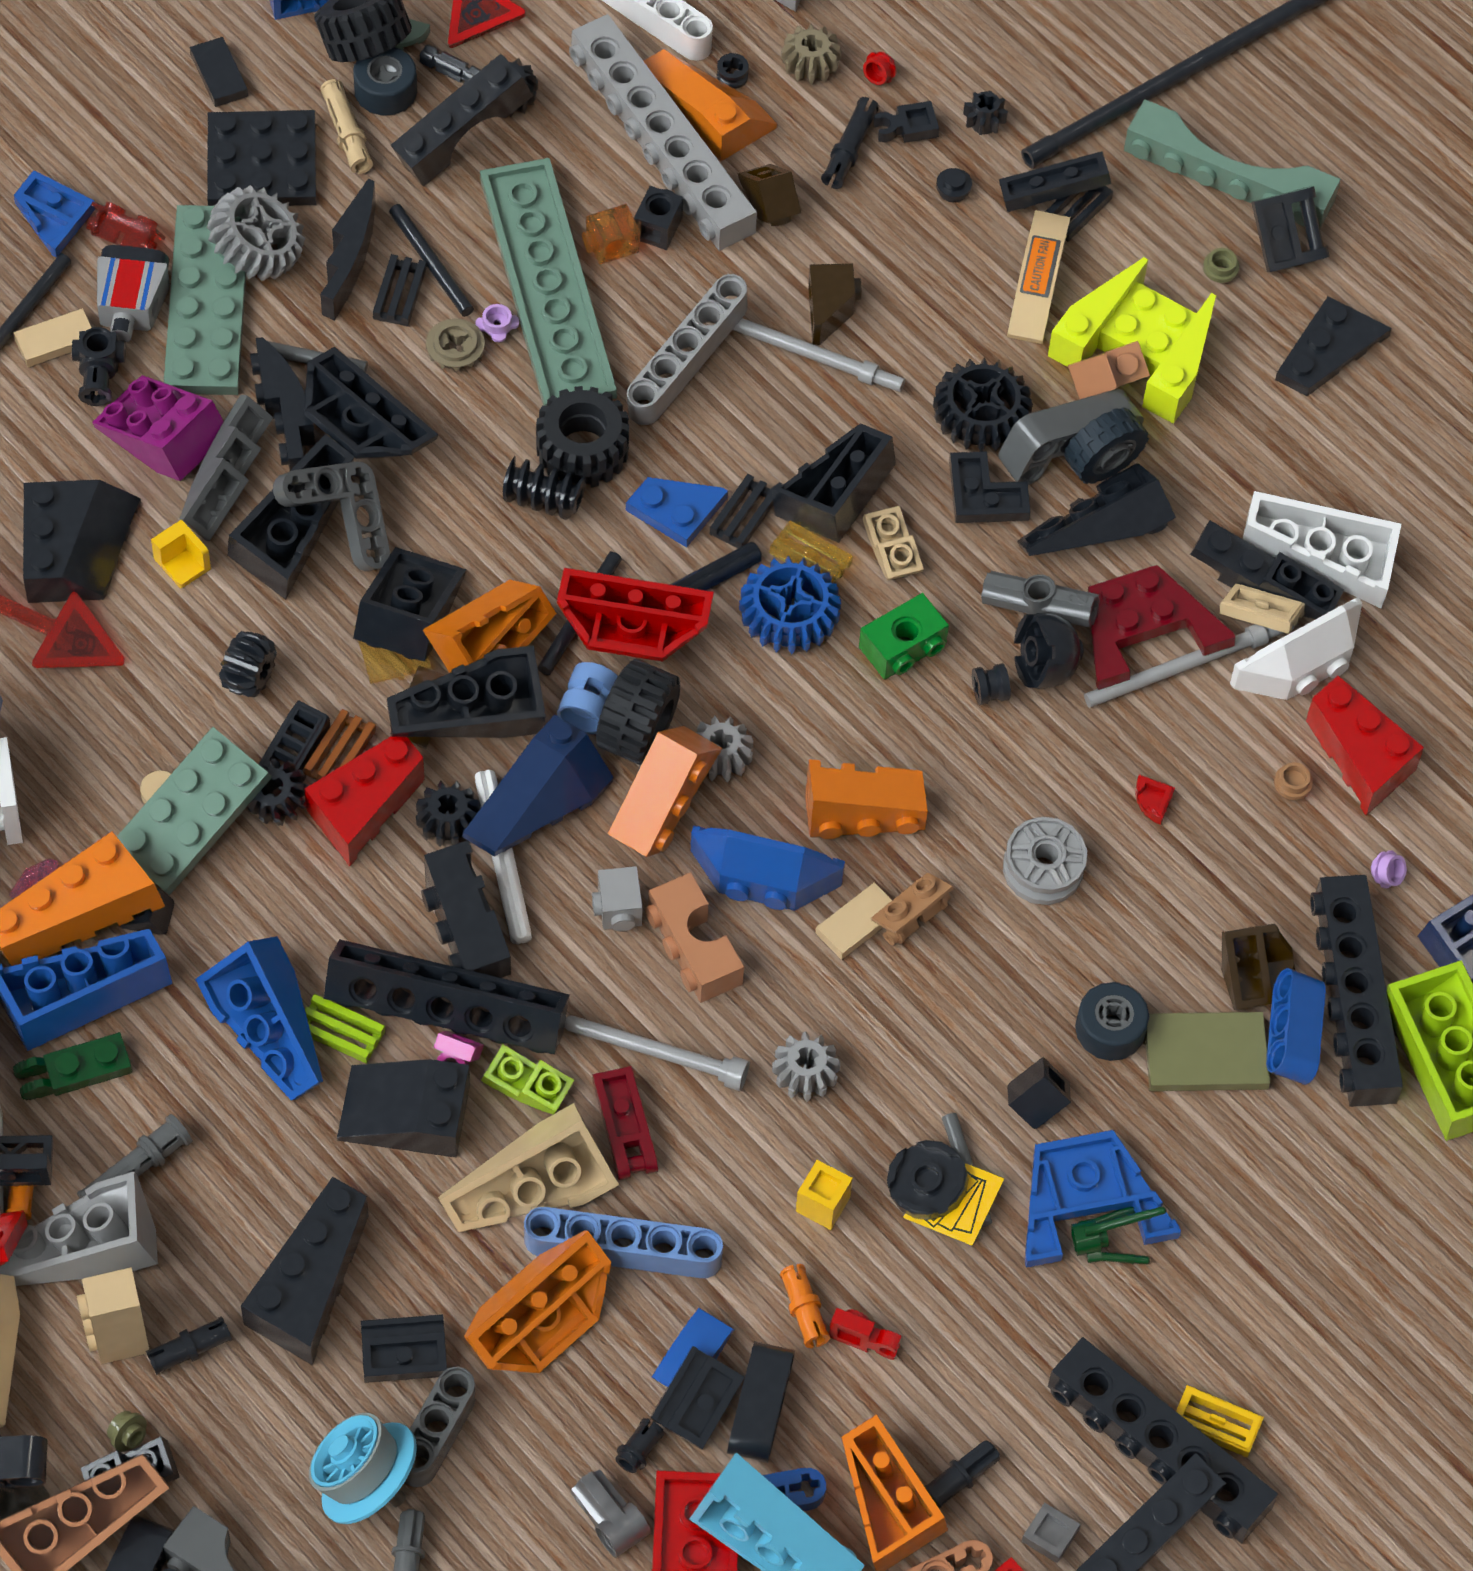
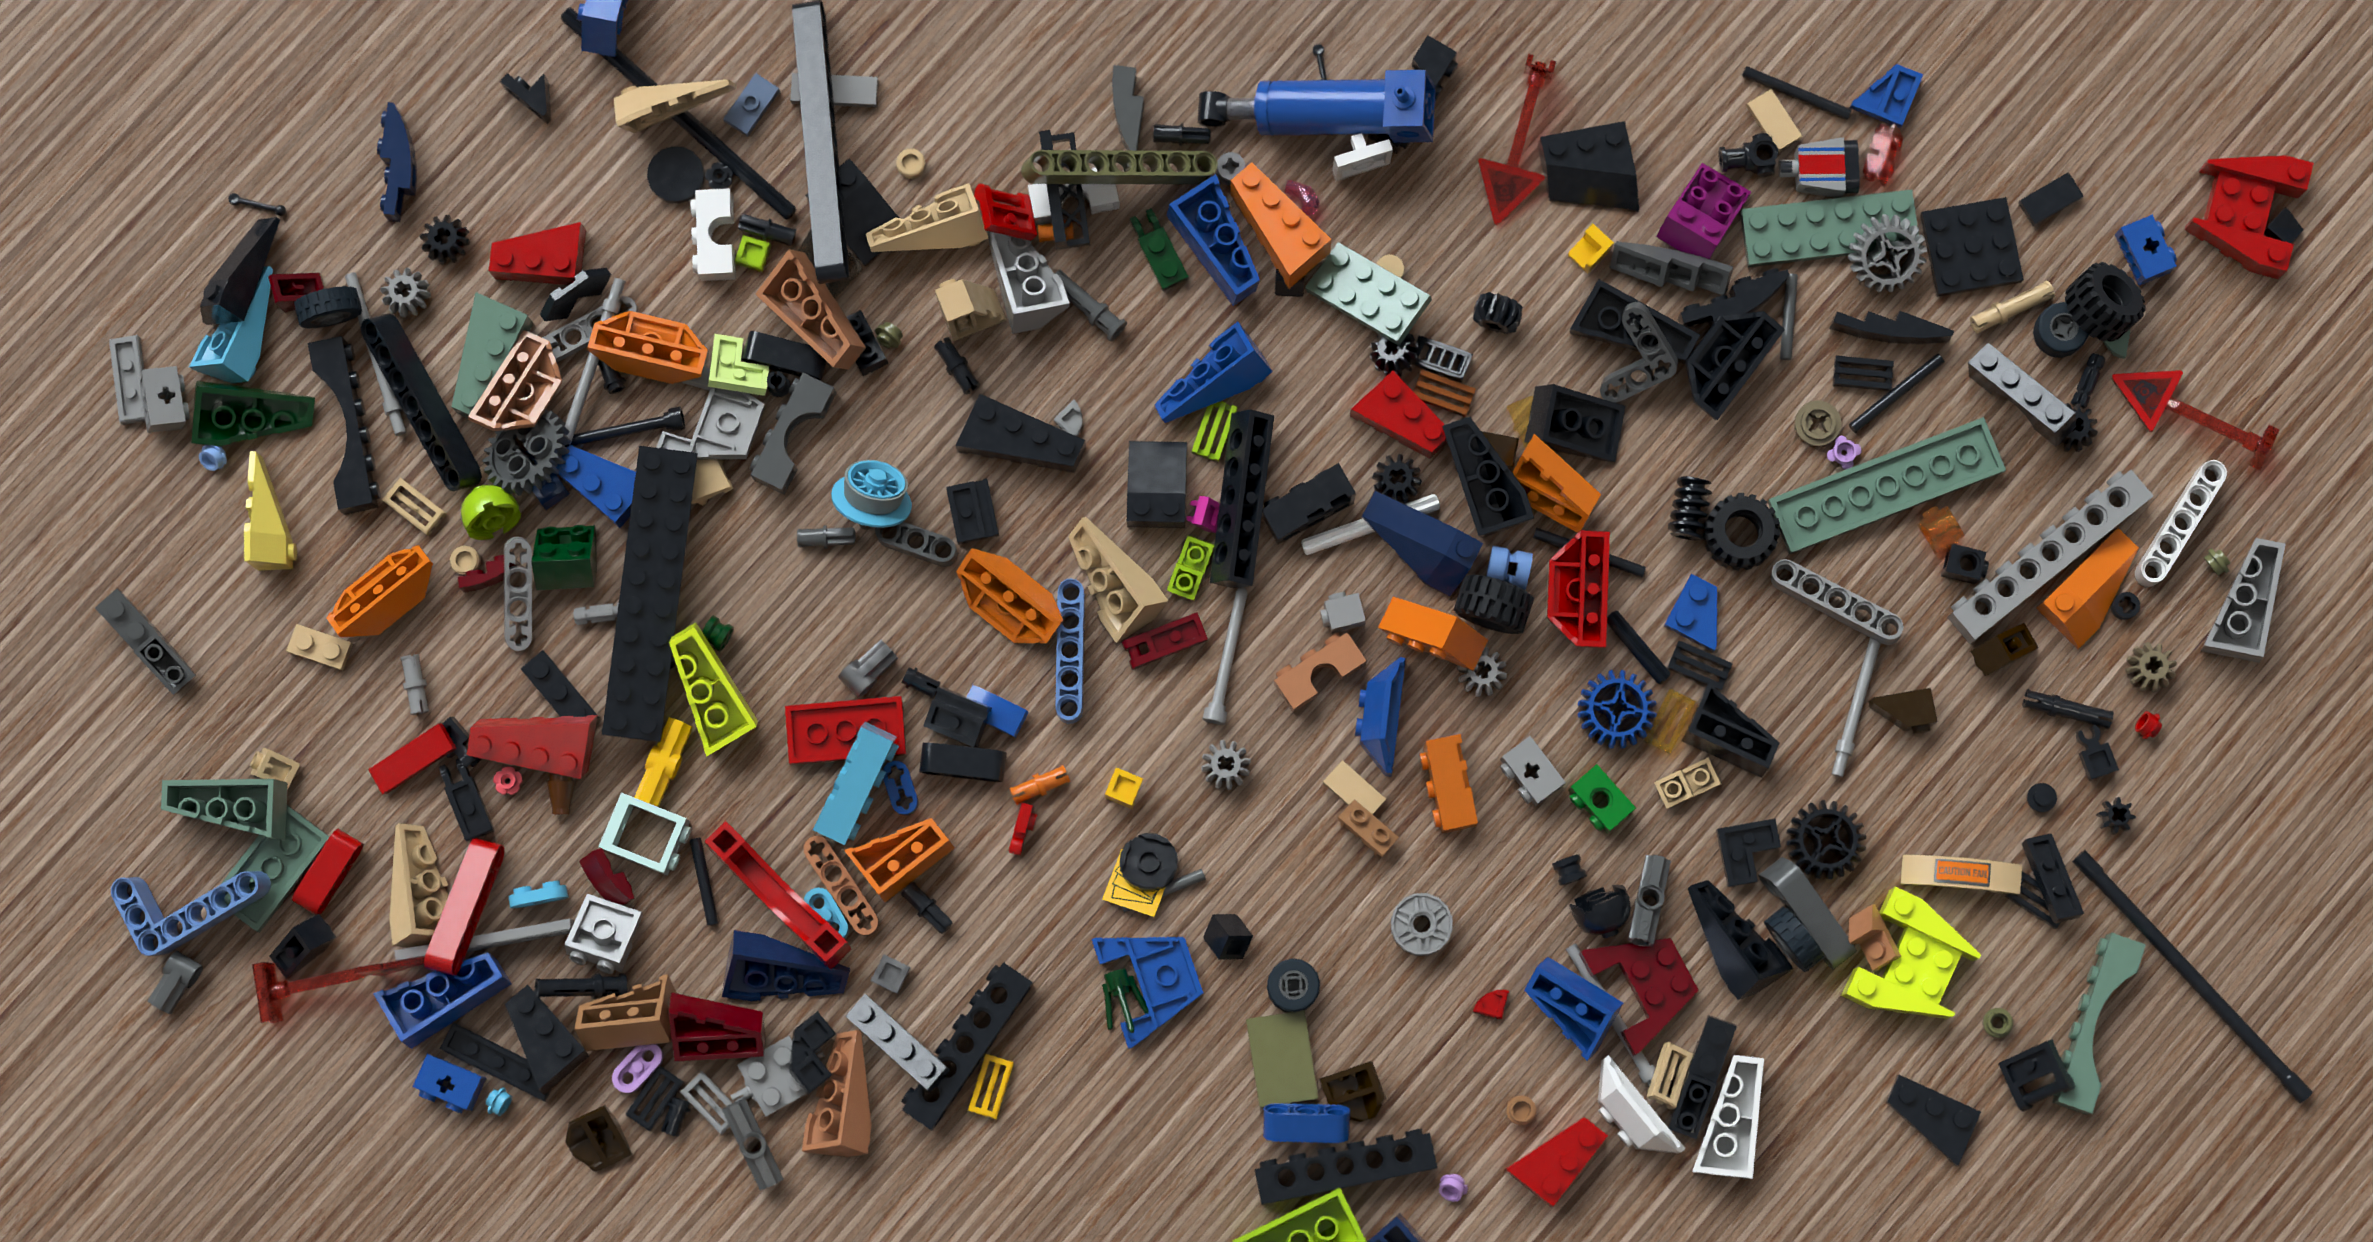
camera: 90 degrees right, 20 degrees up
(290, 1208) = (1070, 419): none -> light grey tile
(858, 708) = (1530, 755): none -> light grey brick
(1167, 693) = (1574, 1004): none -> blue wedge

